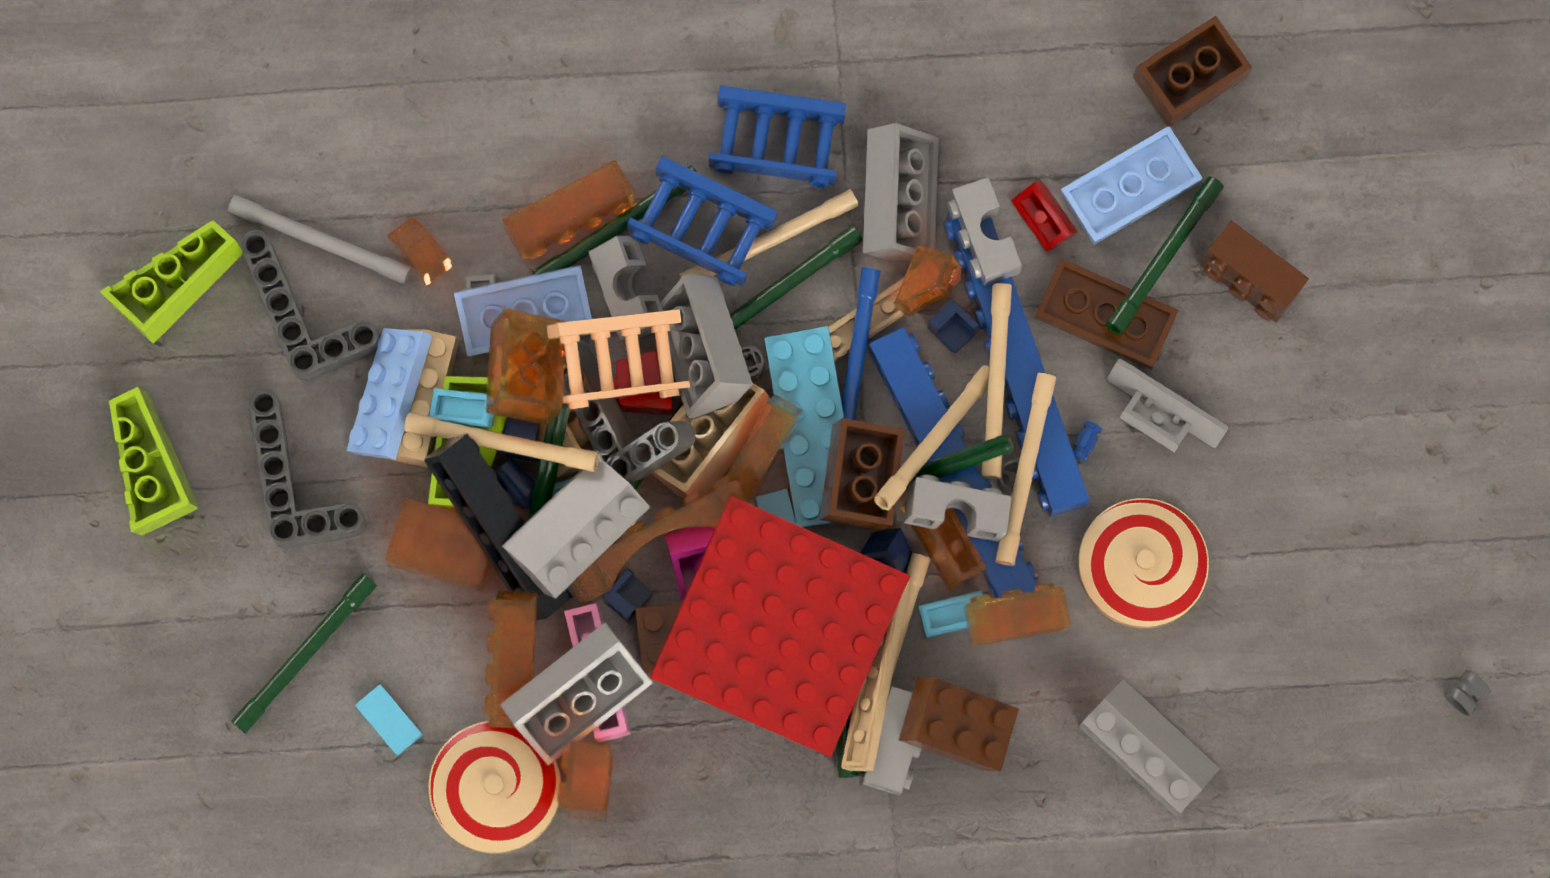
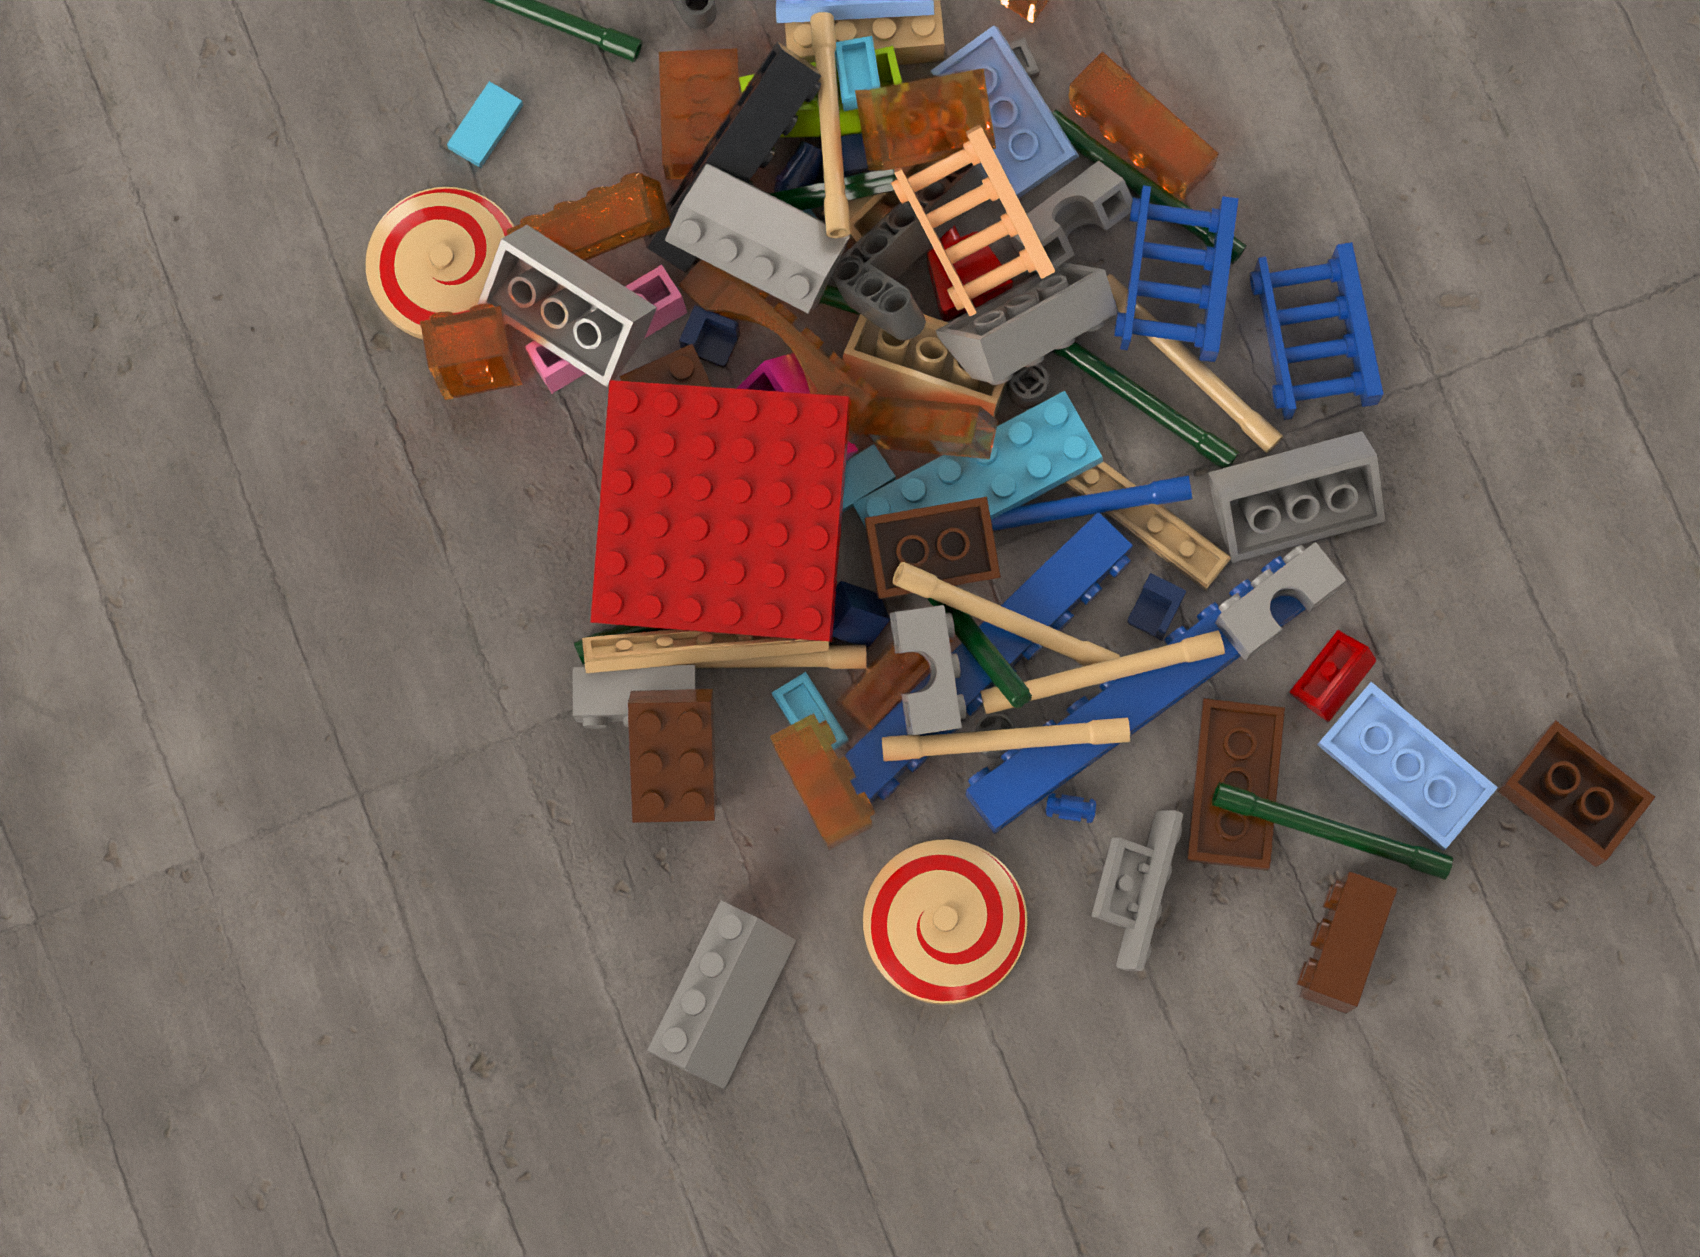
camera: 80 degrees right, 0 degrees up
(927, 280) = (1198, 554): clear orange slope -> none

